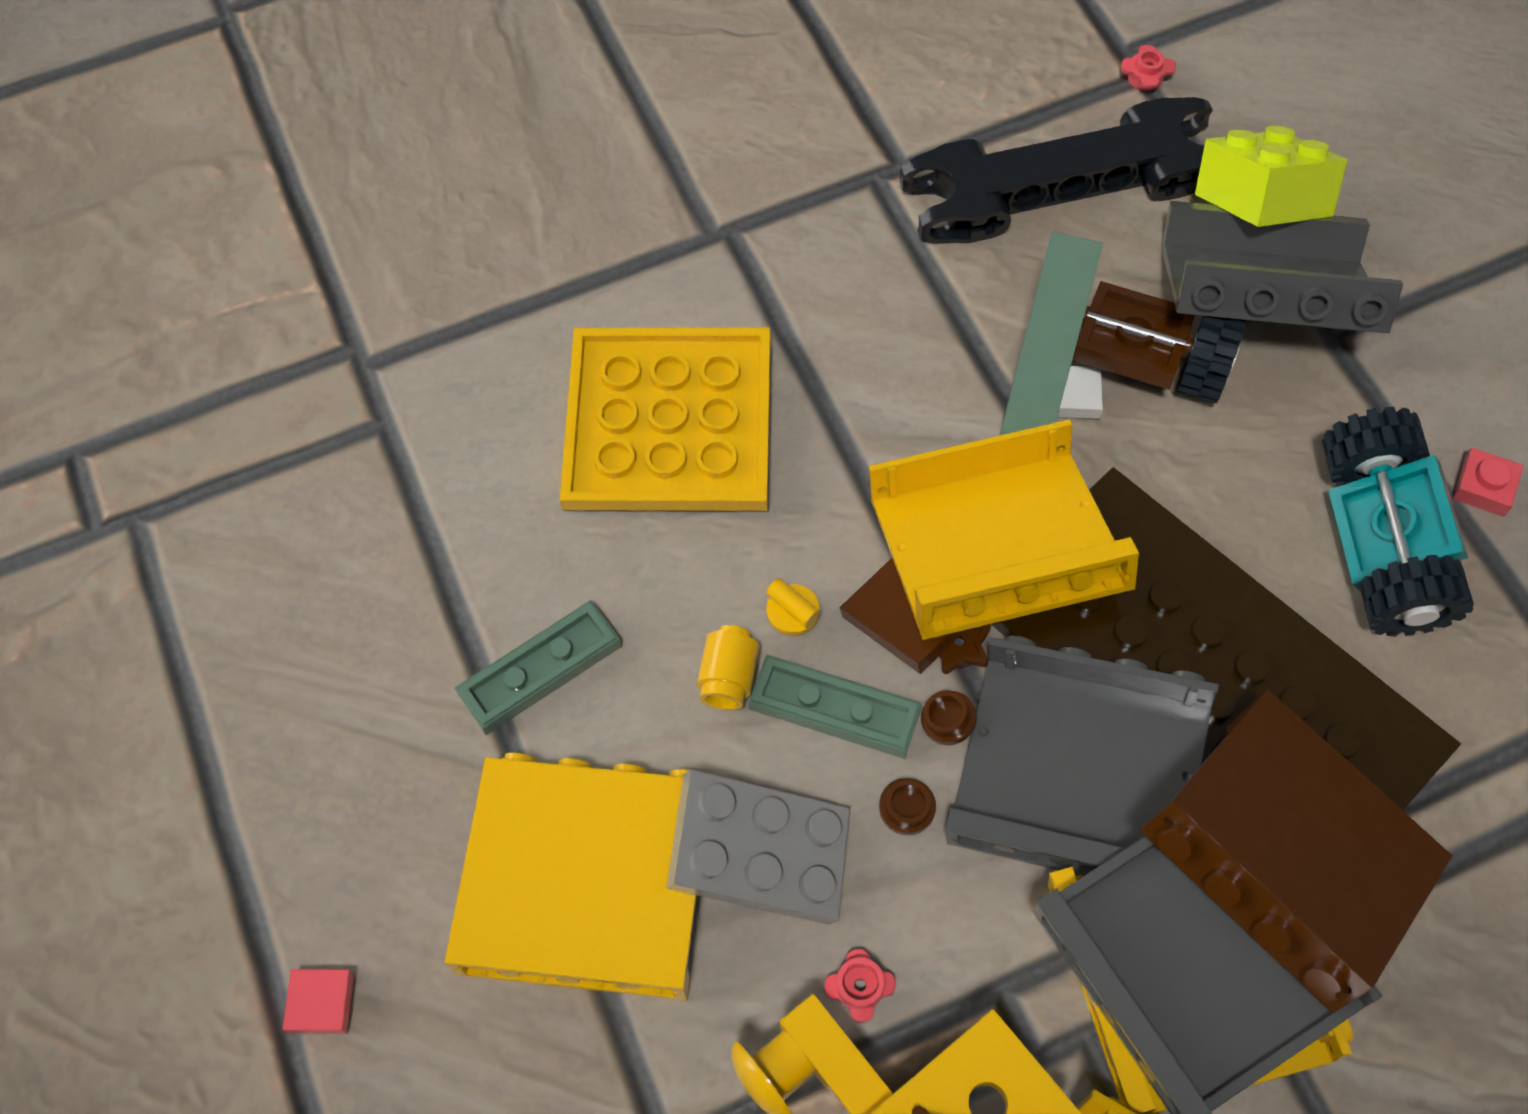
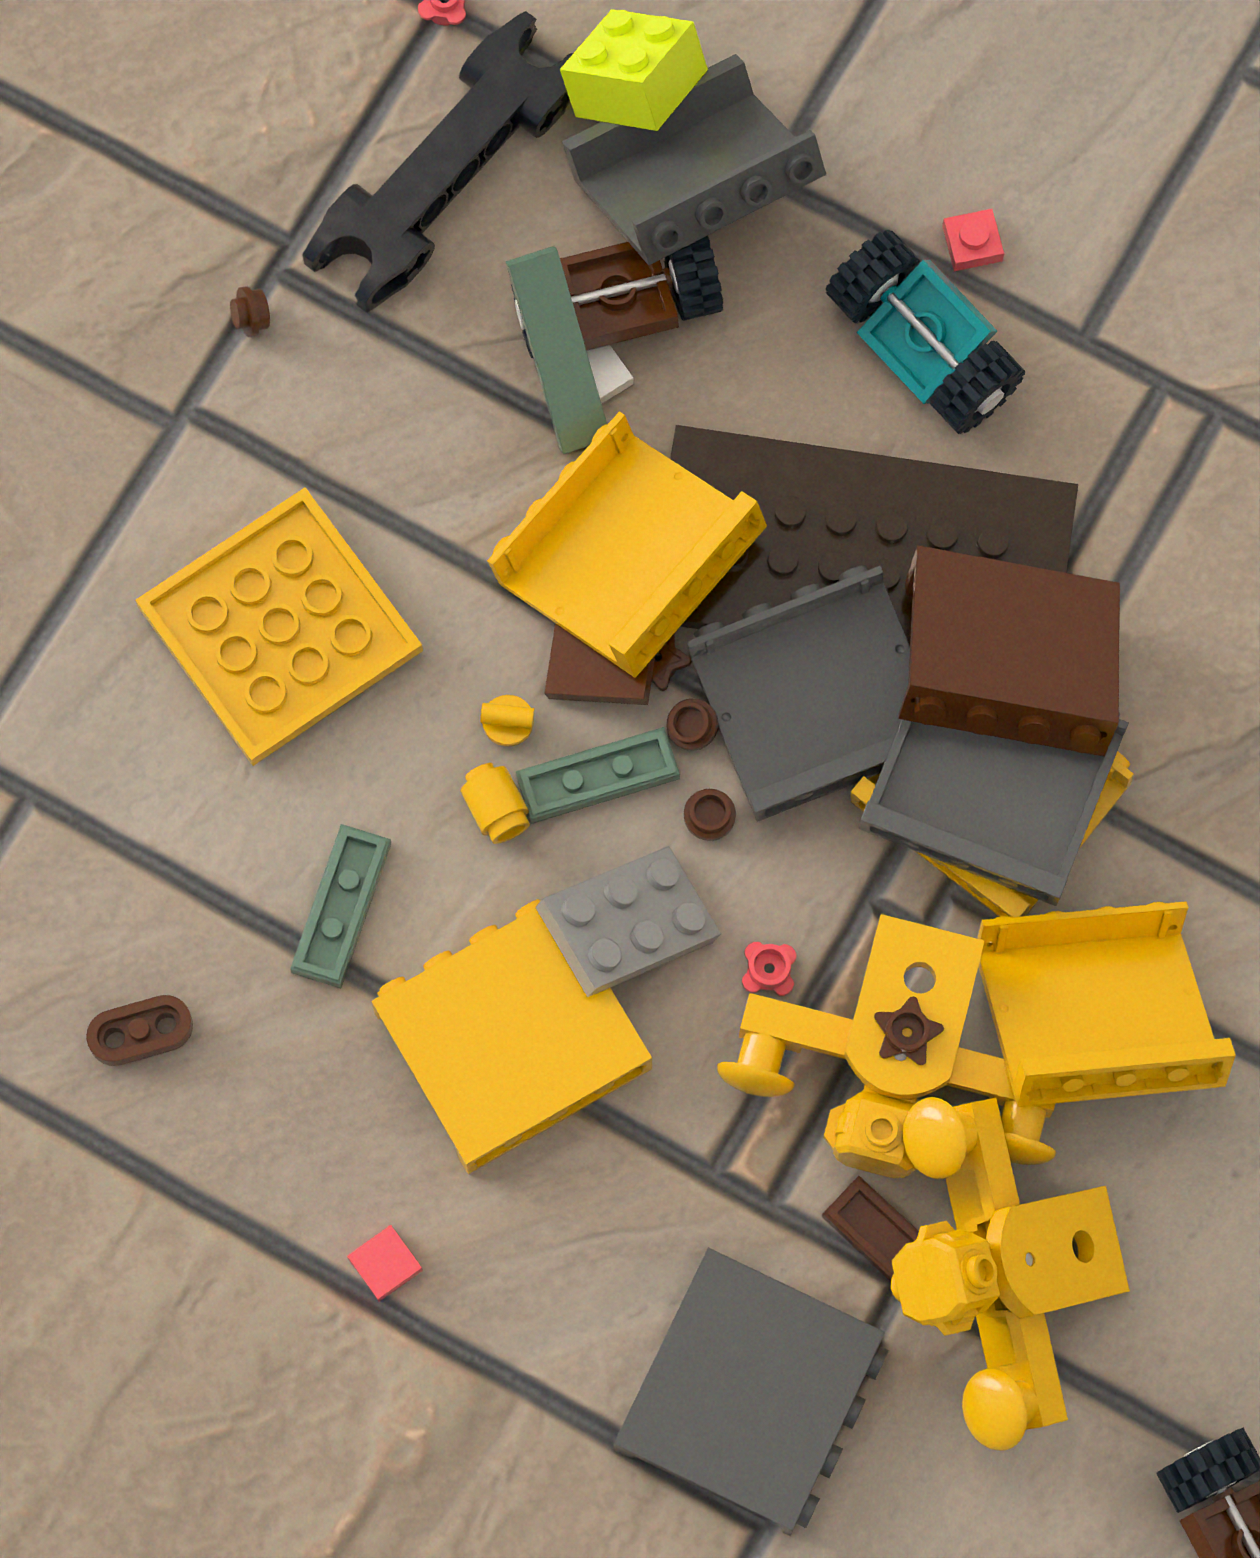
camera: 40 degrees left, 10 degrees up
(301, 655) = (139, 1025): none -> reddish brown plate
(830, 185) = (250, 311): none -> reddish brown plate

